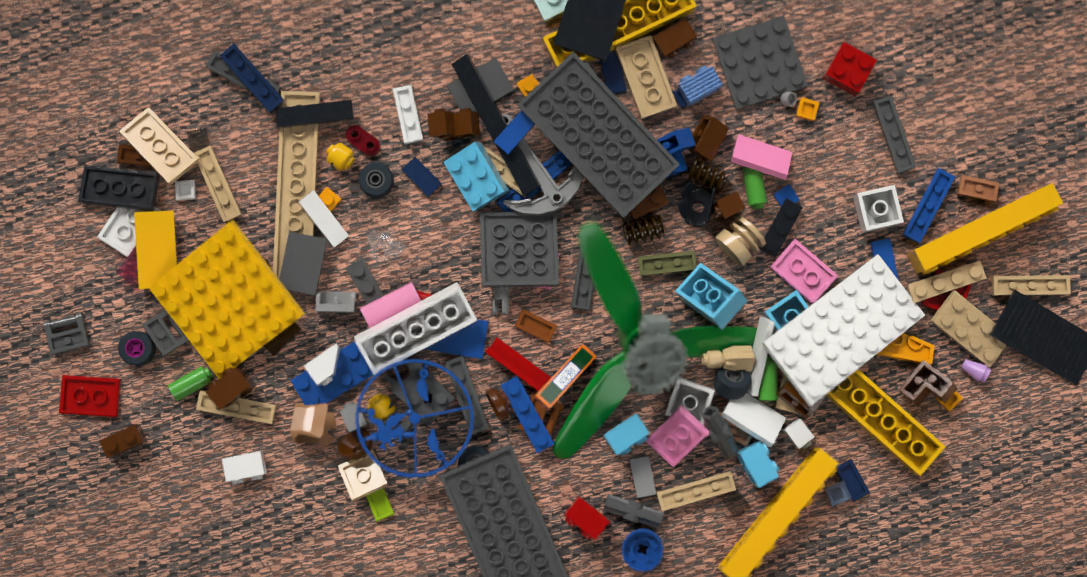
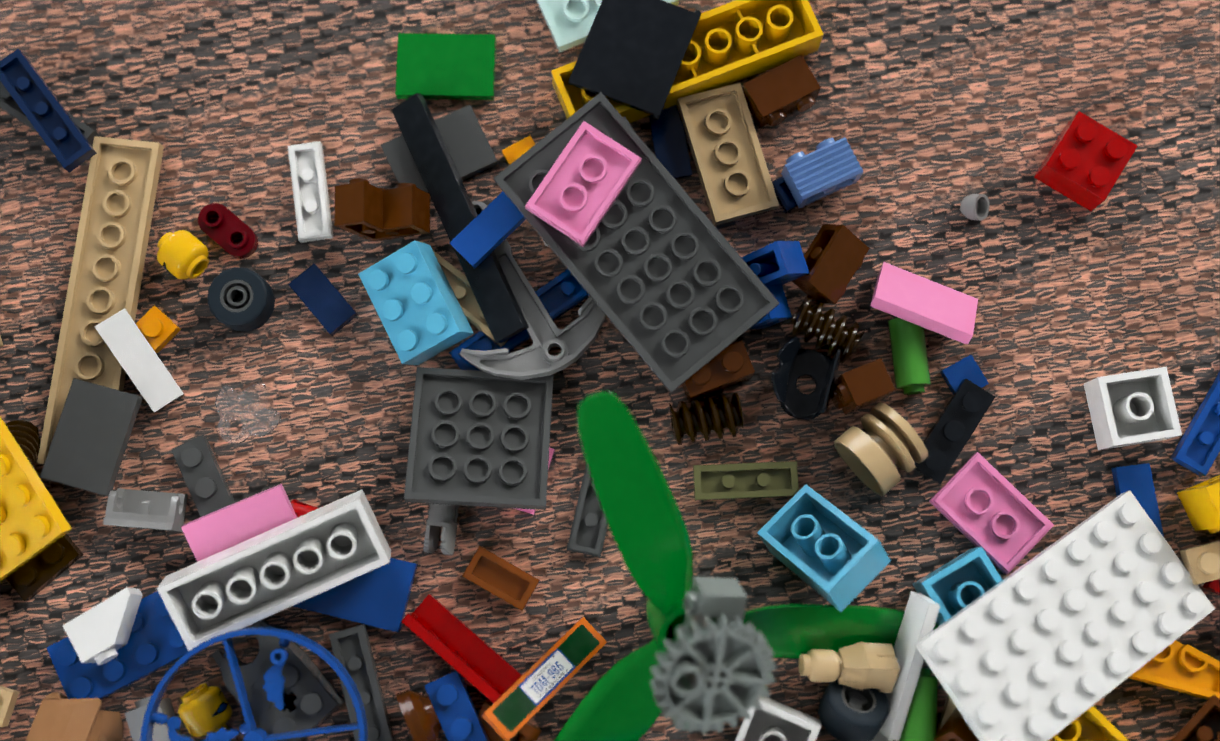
camera: 10 degrees right, 5 degrees down
(314, 114) = (145, 177): black tile -> none
(479, 35) = (446, 66): none -> green tile
(567, 105) = (583, 183): none -> bright pink tile
(759, 62) = (926, 142): dark grey plate -> none
(807, 109) = (1007, 226): light orange plate -> none
(894, 134) = (1160, 280): dark grey plate -> none

